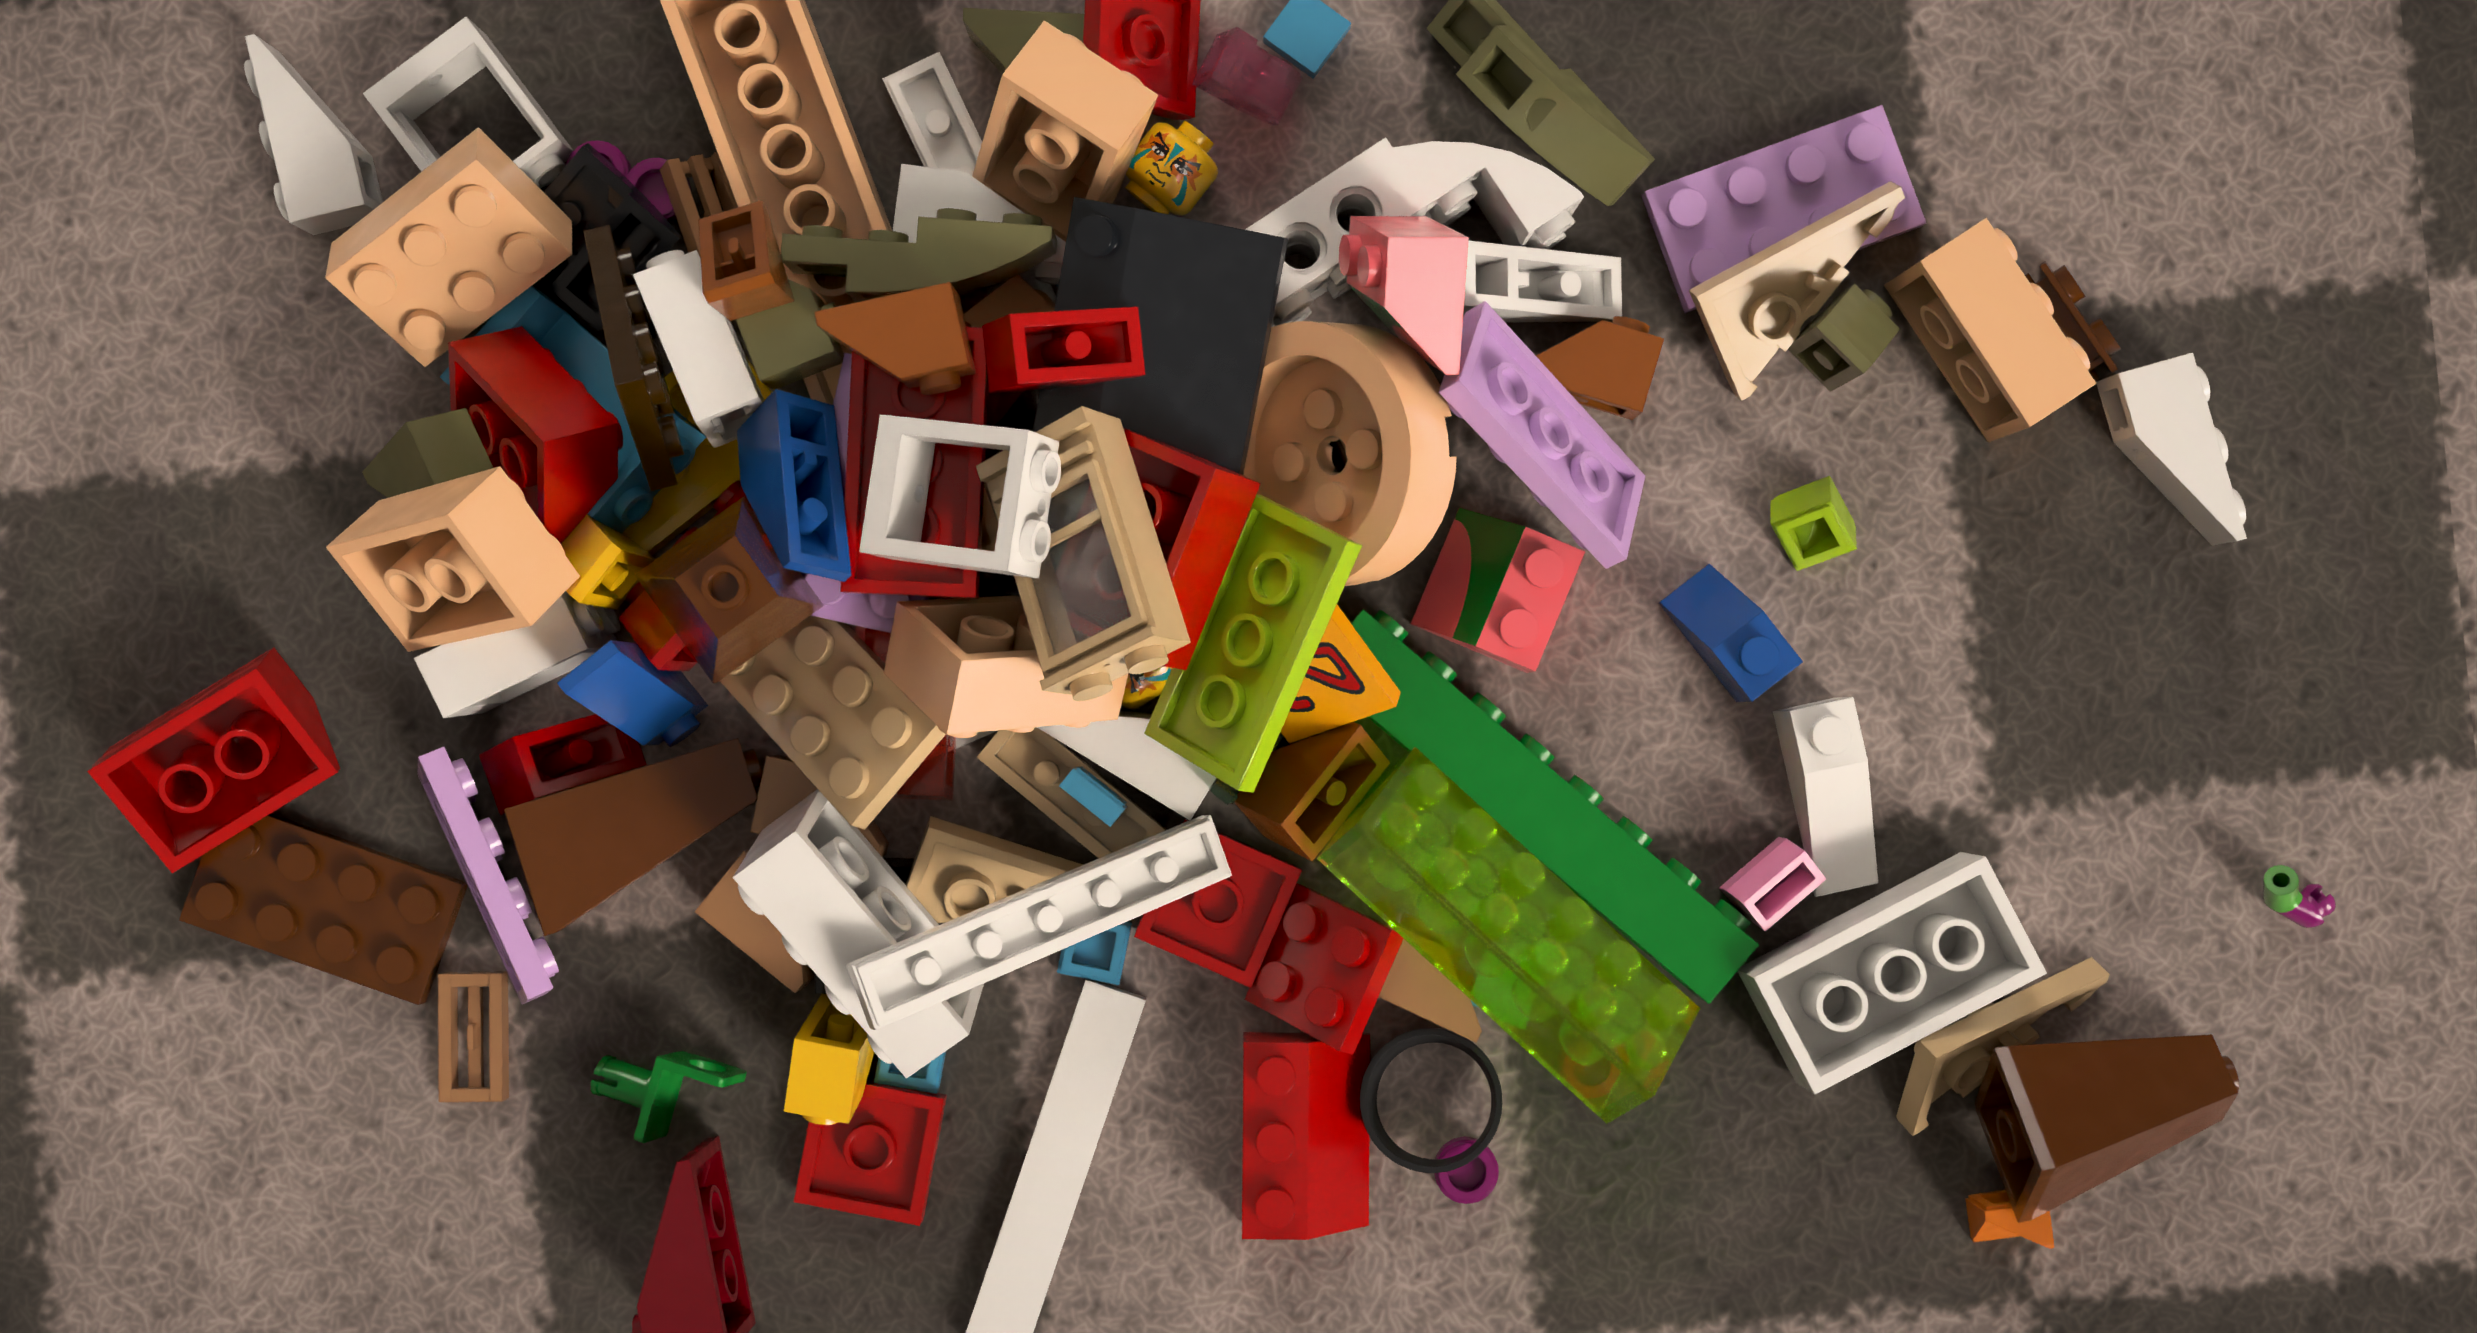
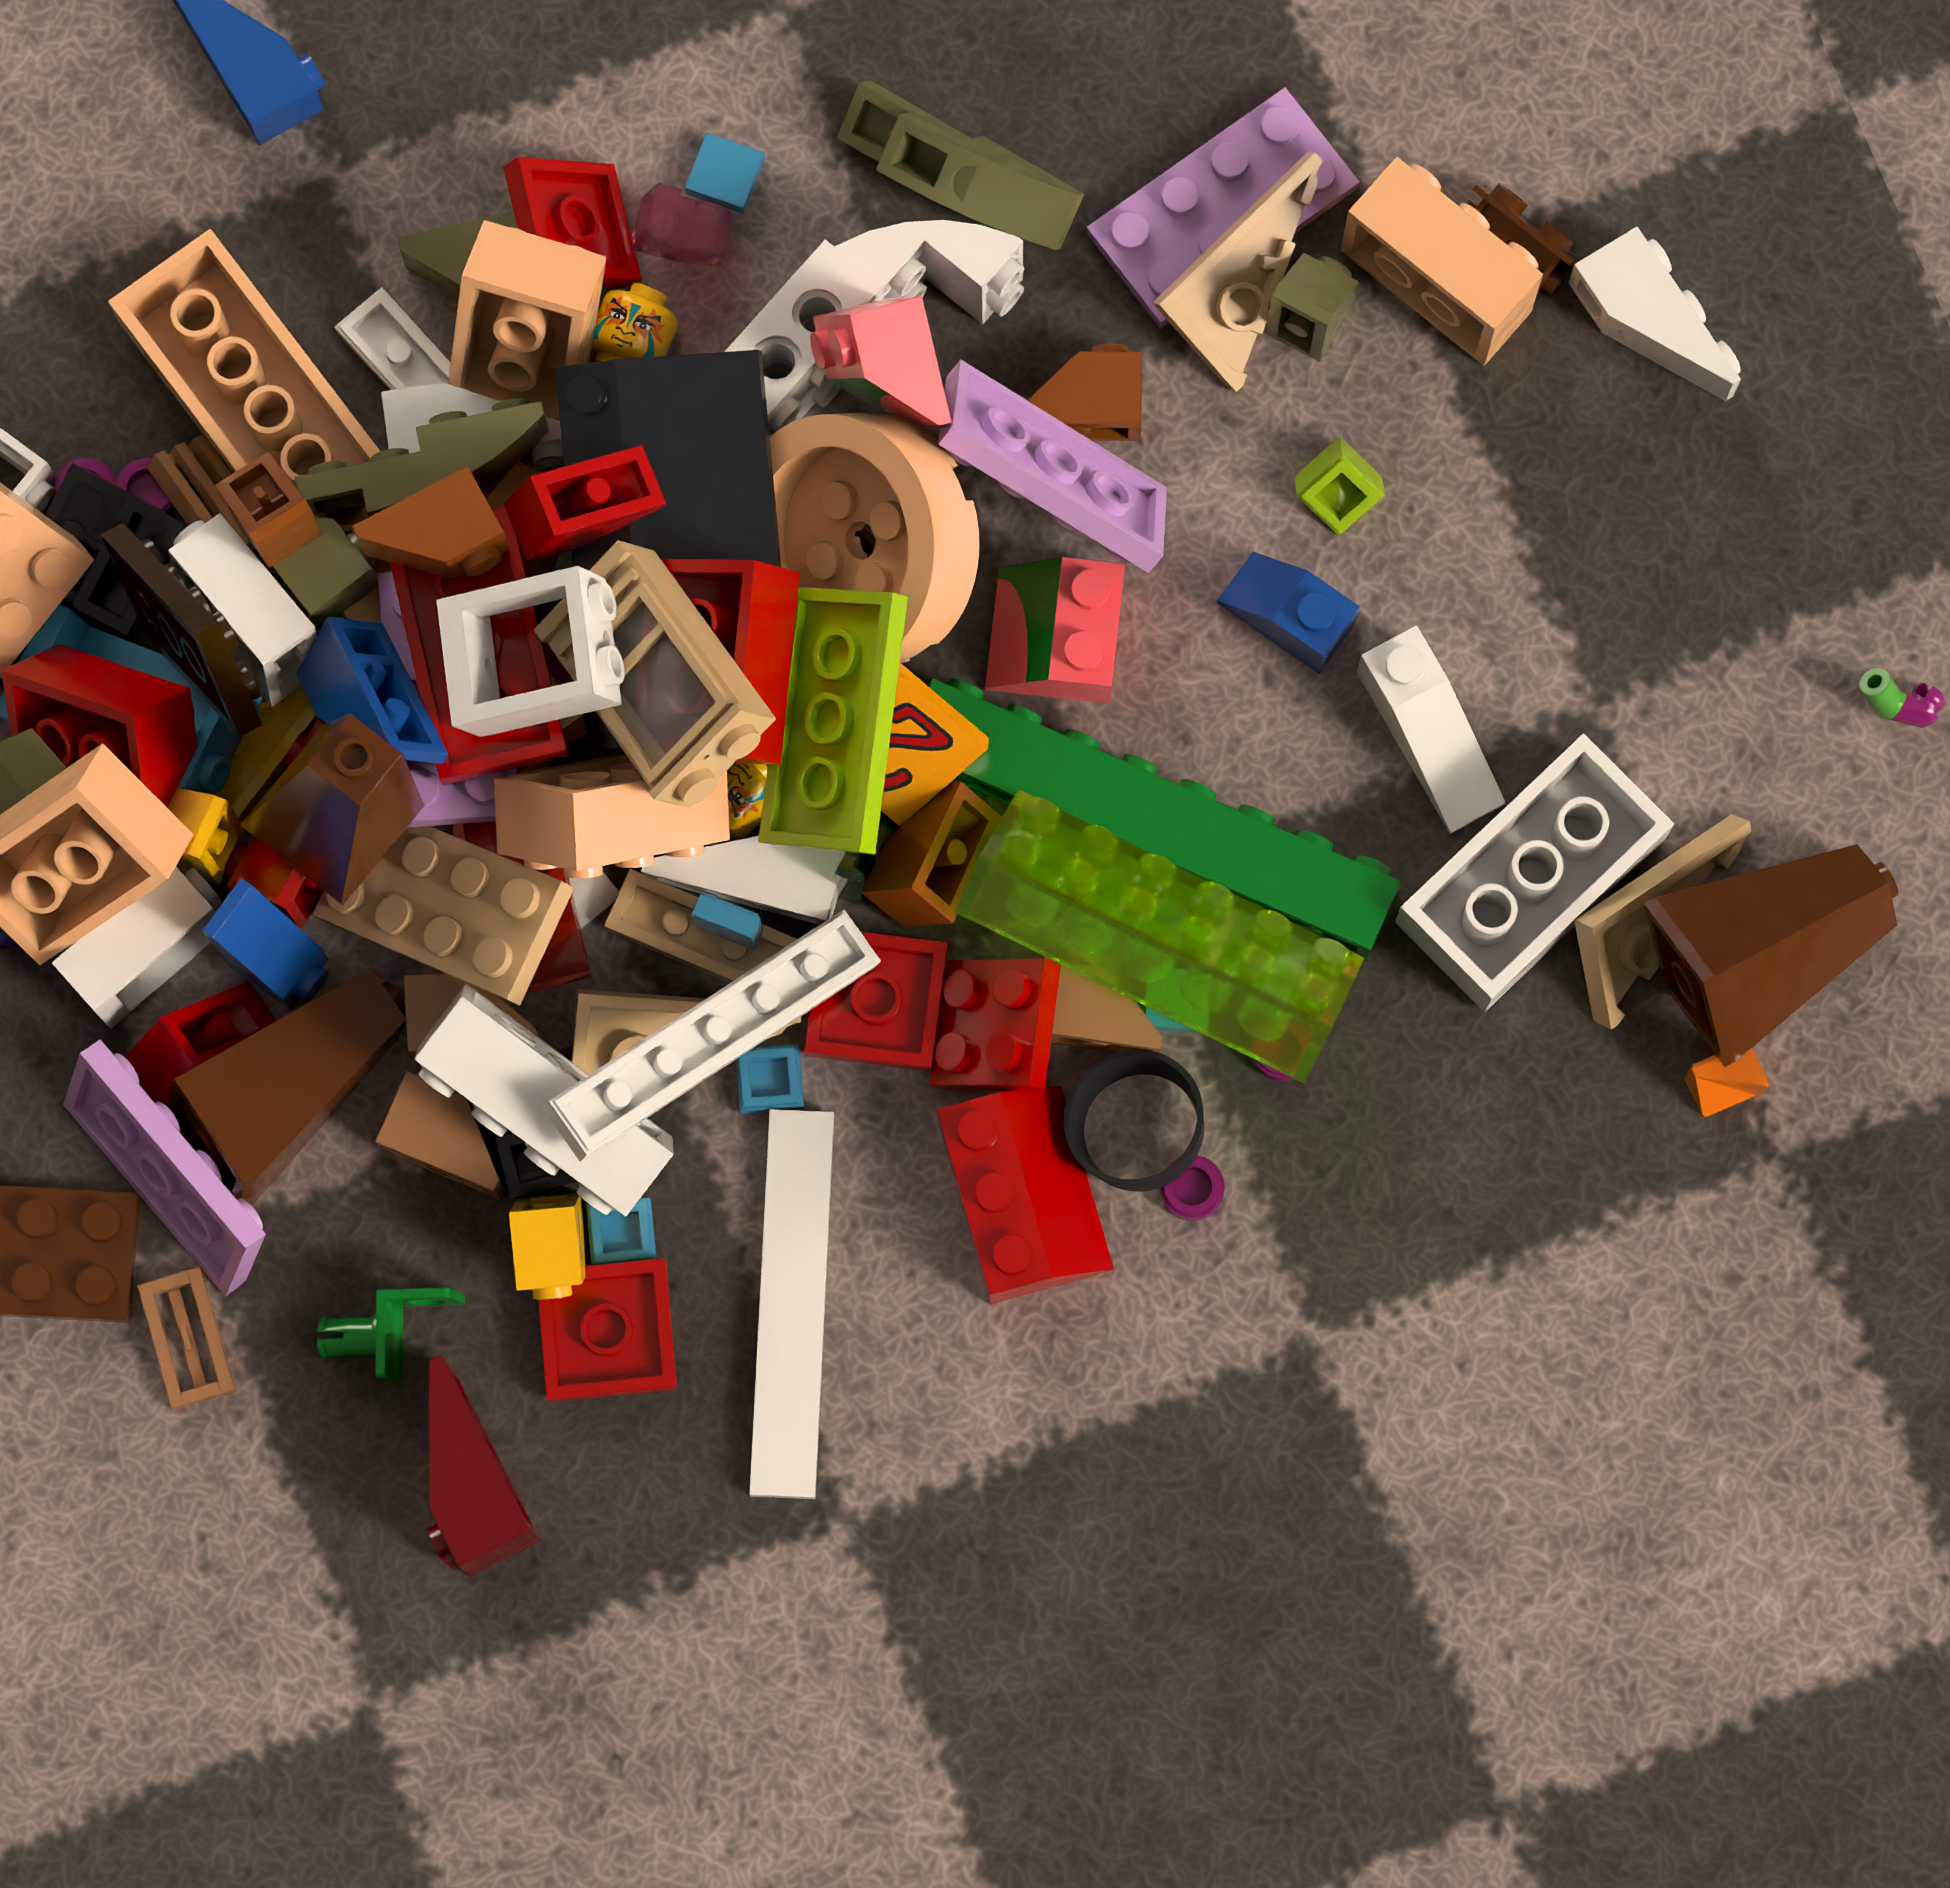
camera: 15 degrees left, 10 degrees down
(1542, 283) = (1012, 337): white slope -> none
(1773, 883) = (1406, 792): bright pink piece -> none

